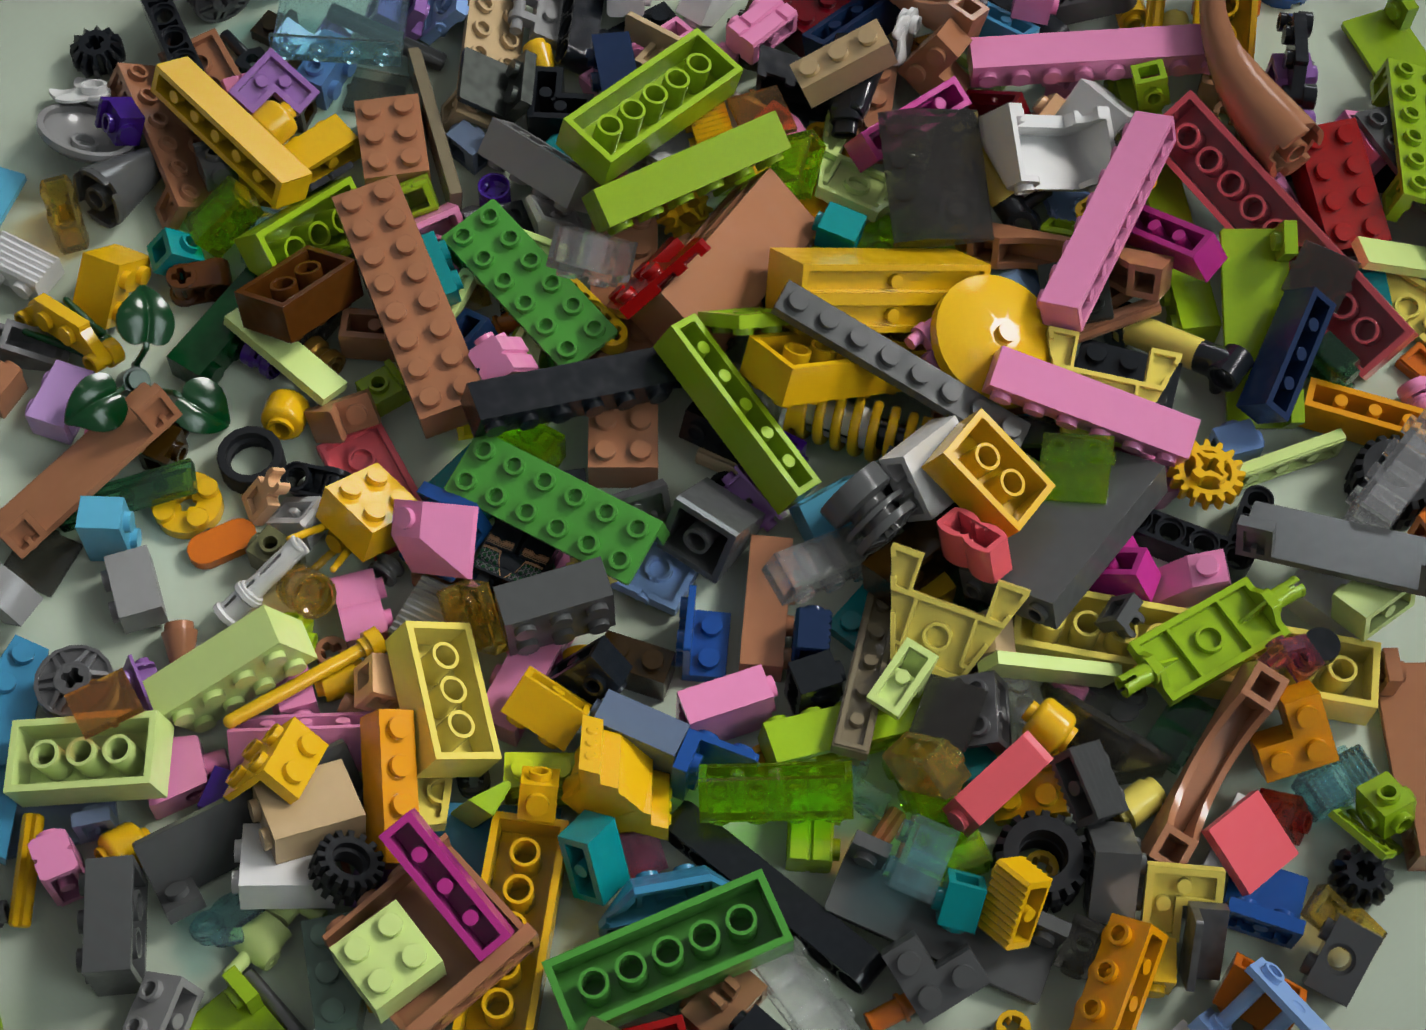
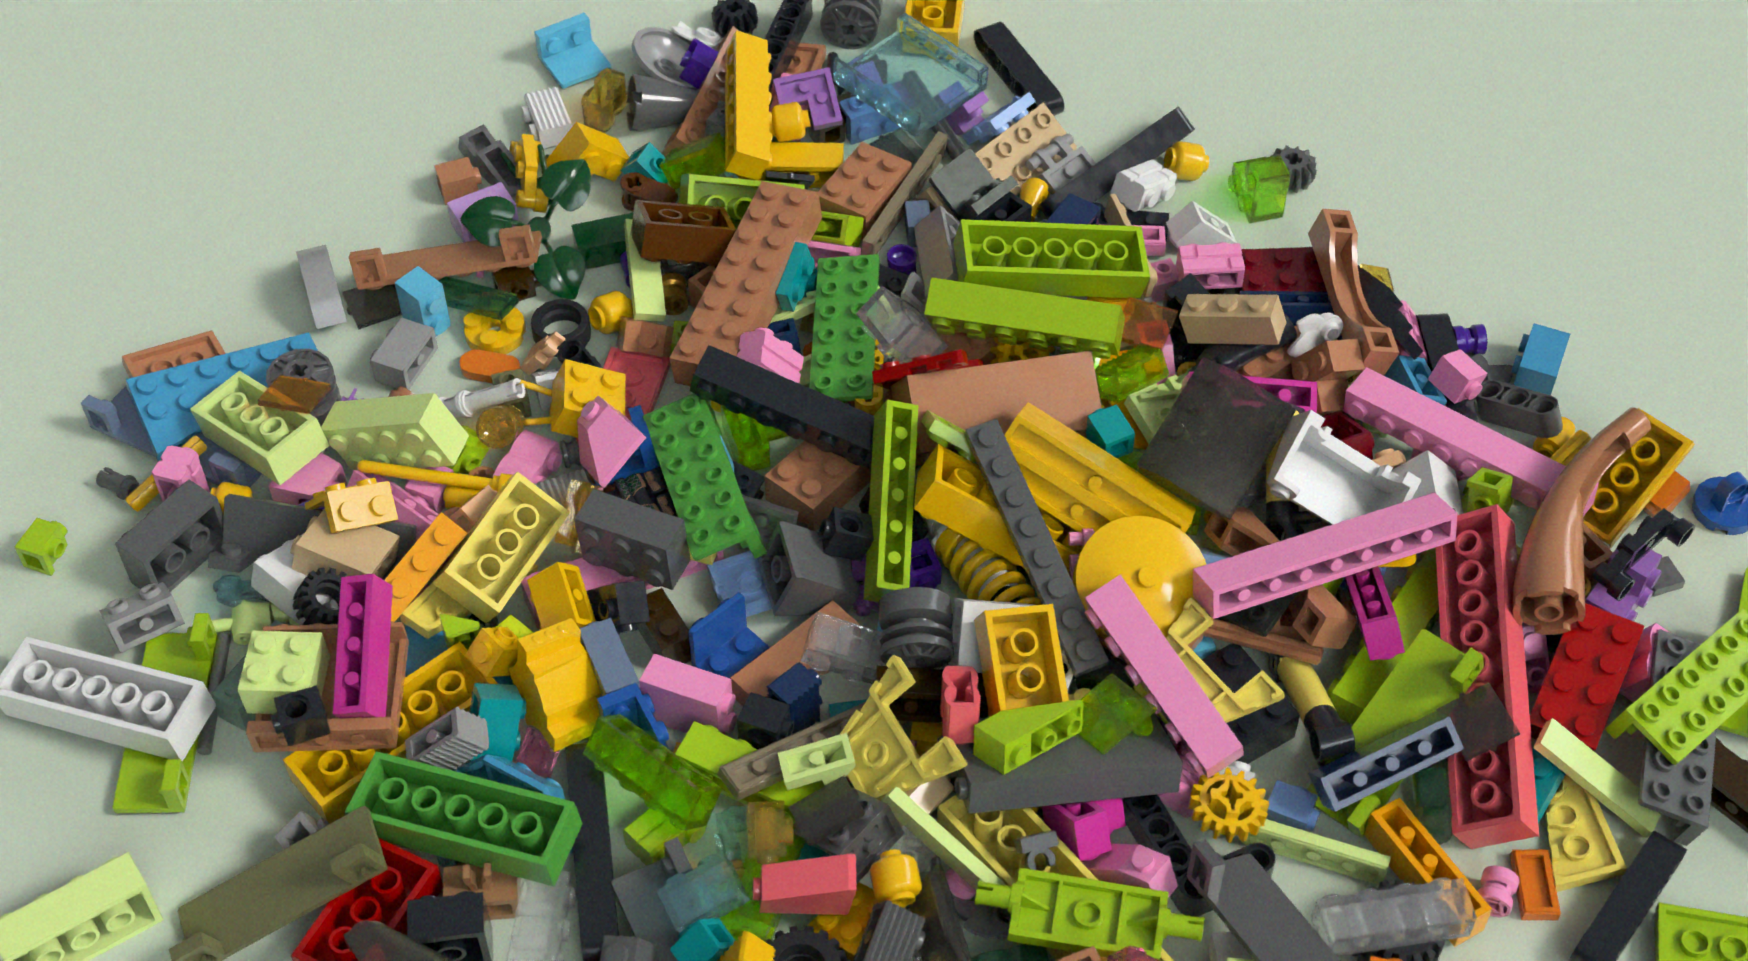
camera: 45 degrees right, 10 degrees down
(458, 968) = (313, 717): none -> black brick
(588, 904) = (449, 740): none -> light grey brick
(723, 468) = (846, 534): none -> black brick
(1044, 532) = (1024, 733): none -> lime slope

